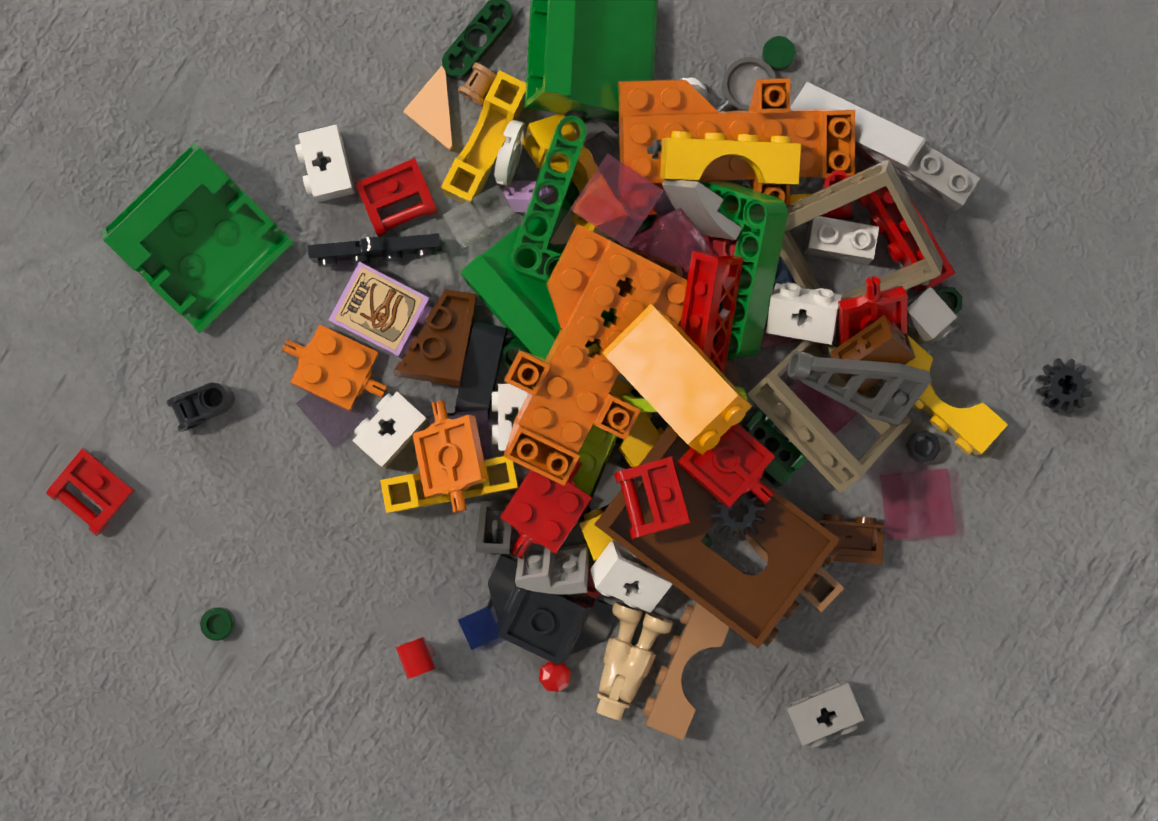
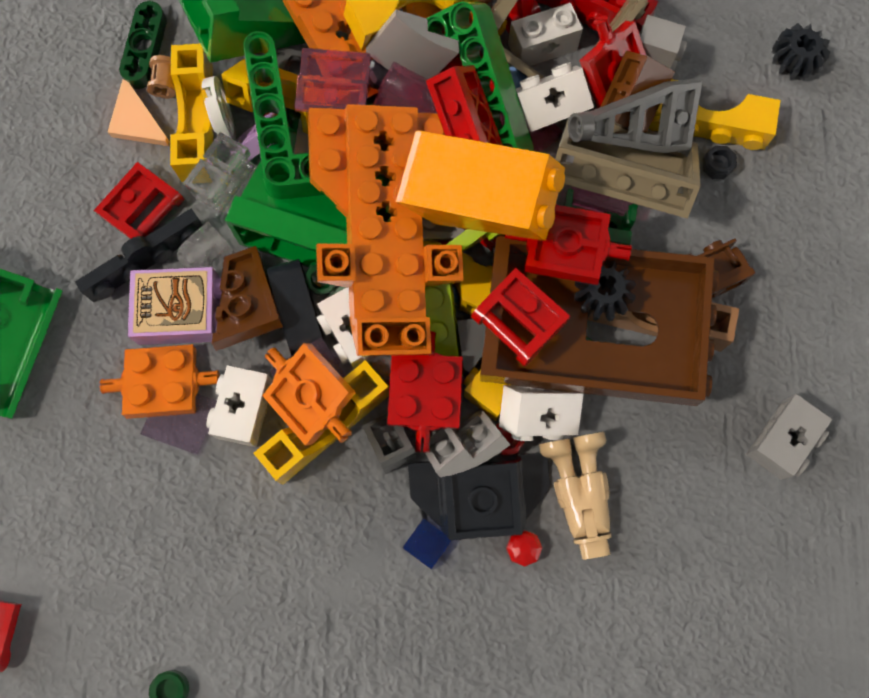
camera: 30 degrees left, 10 degrees down
(194, 406) = (40, 488): black piece -> none
(327, 144) = (58, 208): white brick -> none
(416, 657) = (381, 605): red piece -> none
(670, 709) = (648, 512): medium nougat arch -> none
(917, 504) = (746, 211): clear pink slope -> none

